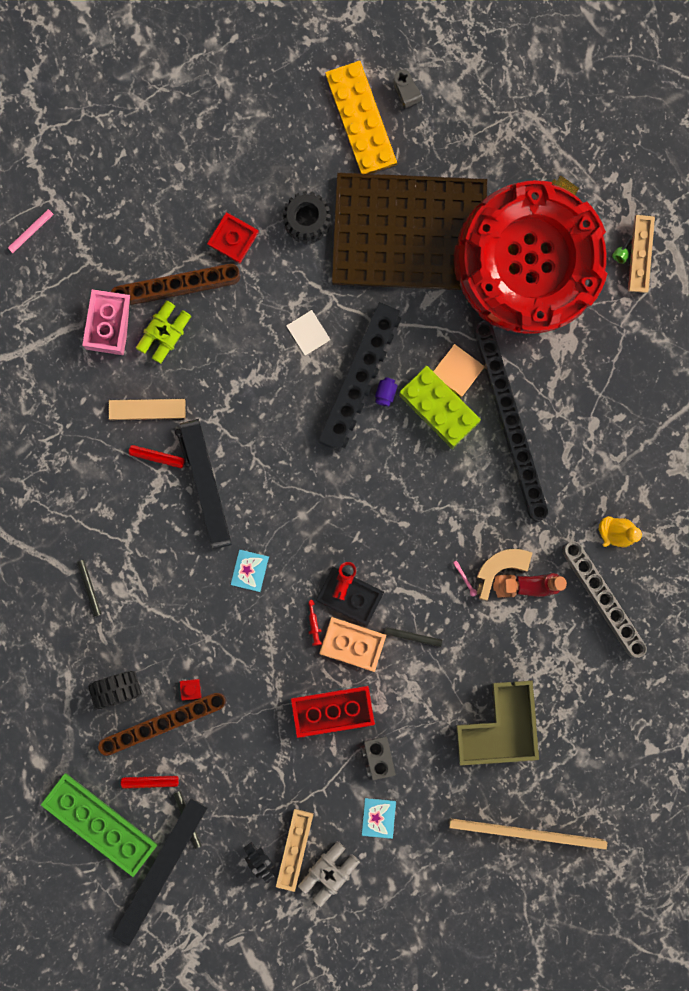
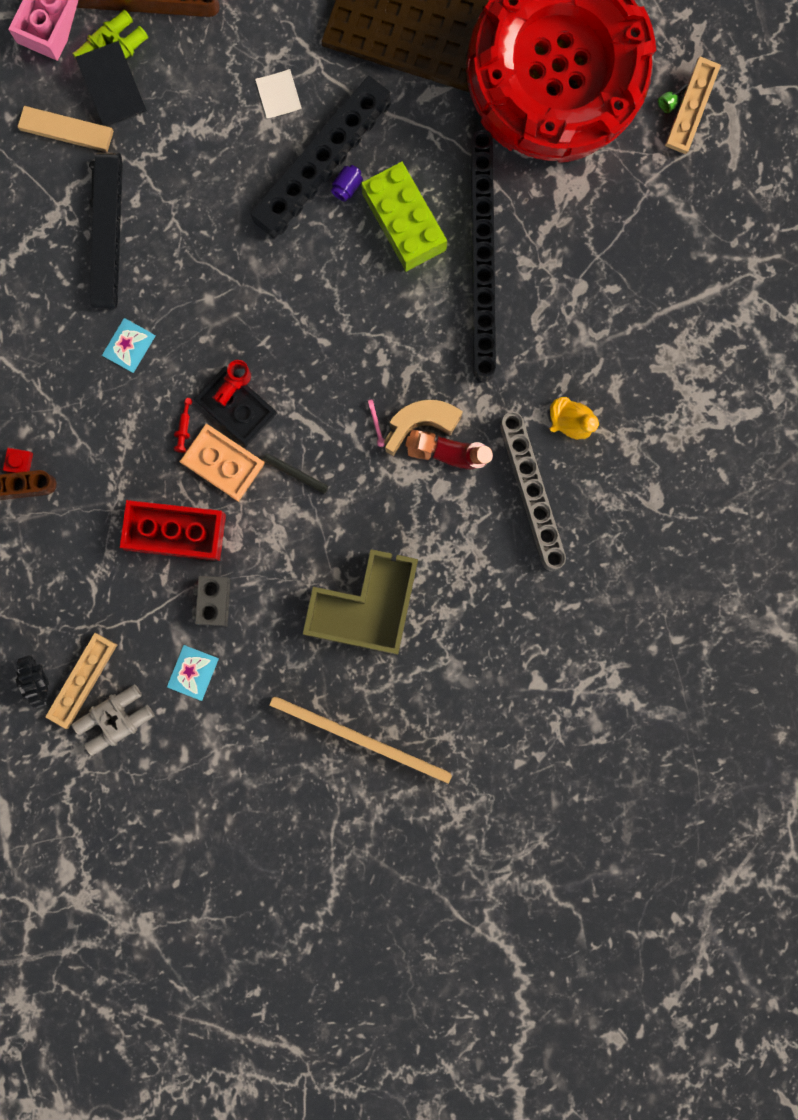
camera: 15 degrees right, 0 degrees up
(156, 456) = (59, 185): red axle -> none
(174, 364) = (111, 83): none -> black tile
(458, 370) = (440, 182): light nougat tile -> none

